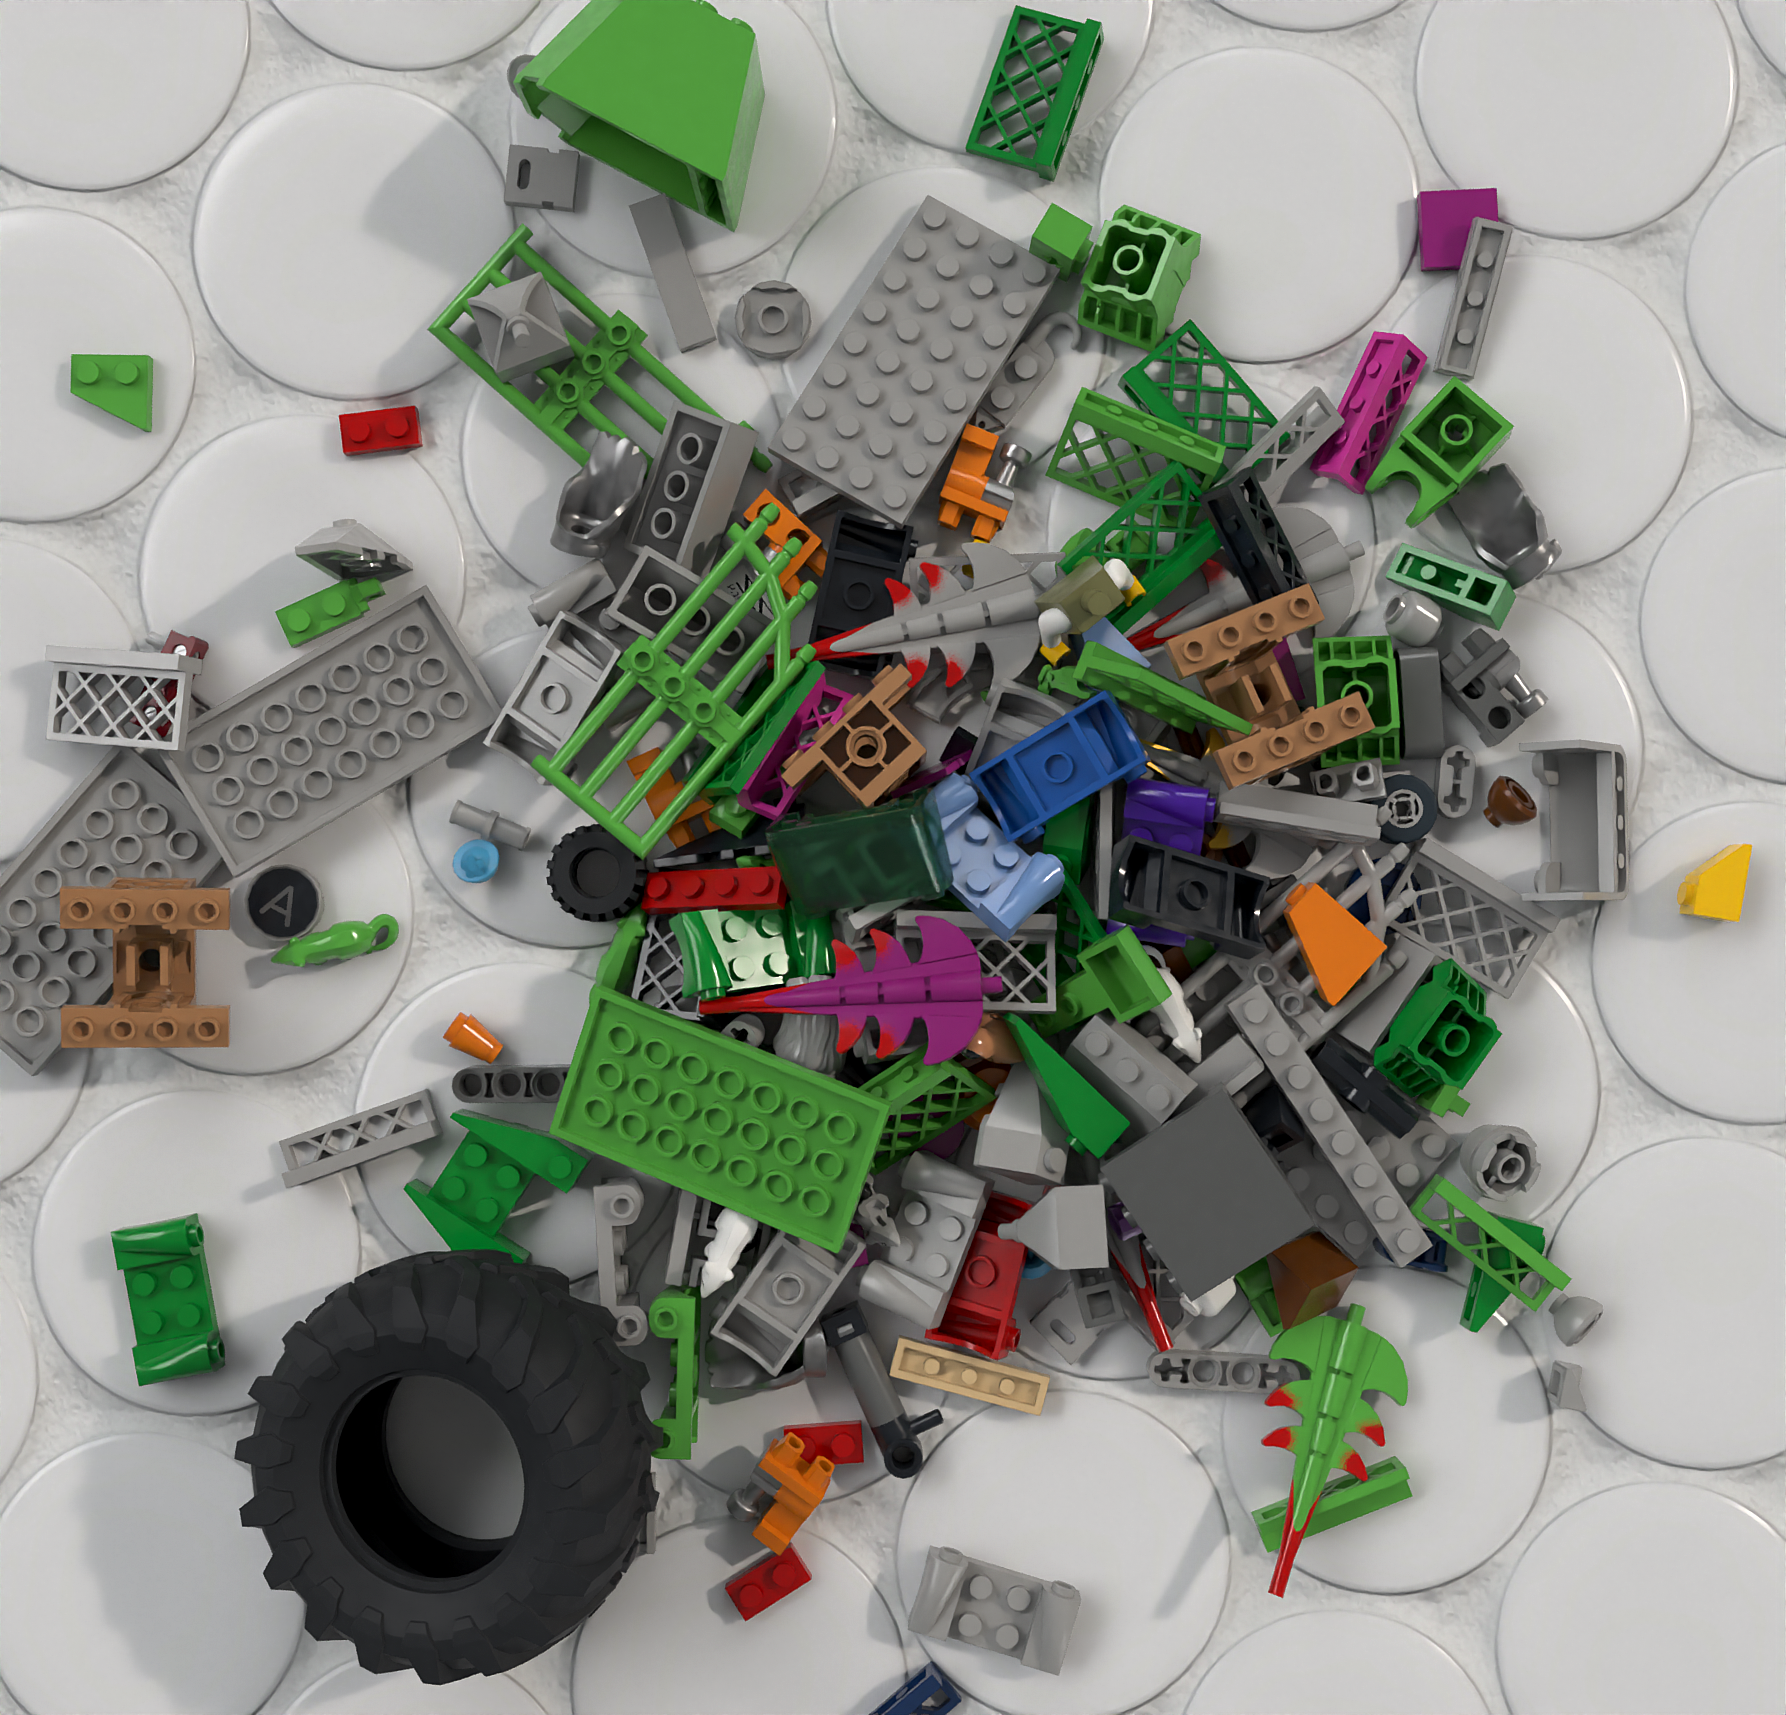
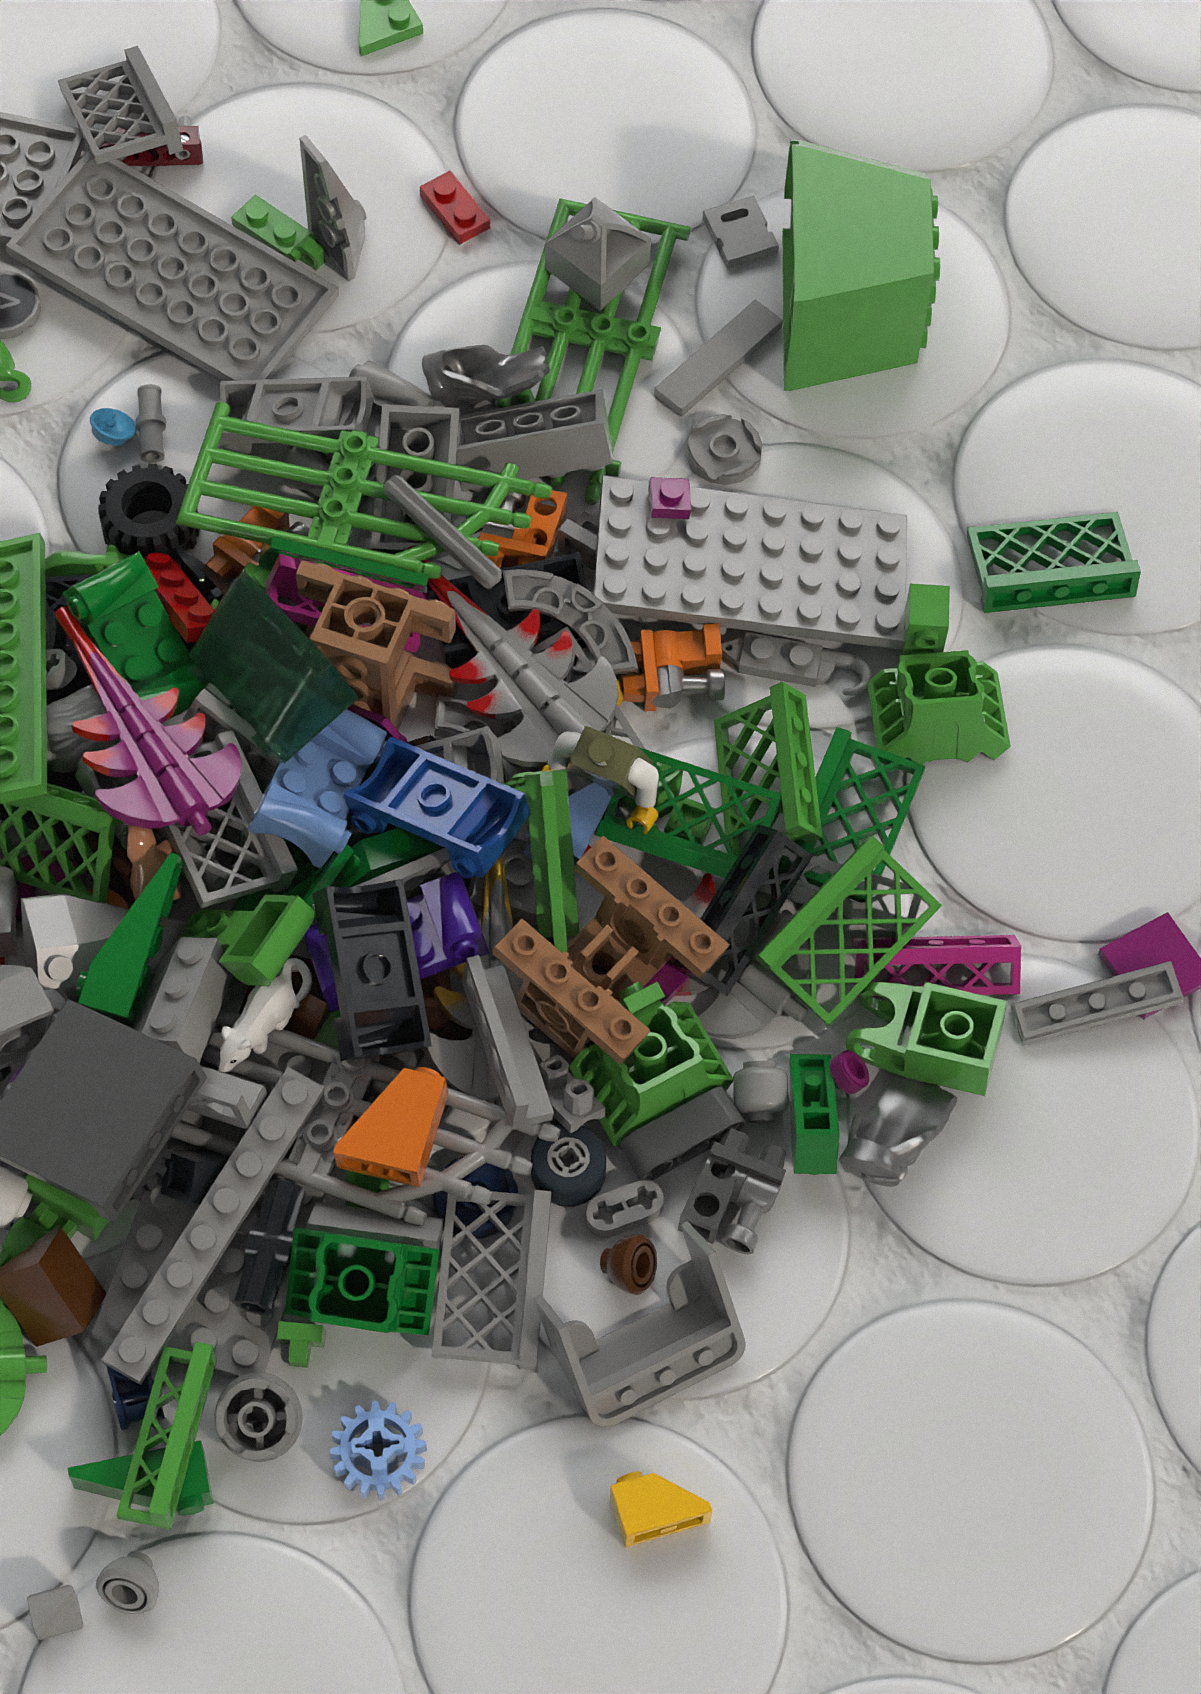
camera: 60 degrees right, 25 degrees down
(778, 626) = (442, 531): none -> light grey axle
(827, 400) = (669, 498): none -> plate
(900, 541) = (576, 609): none -> light grey tile
(1293, 480) = (823, 904): none -> bright green fence
(1304, 684) = (637, 997): none -> bright green plate
(1432, 537) = (849, 1072): none -> magenta tile
(1571, 1065) = (361, 1450): none -> light blue gear

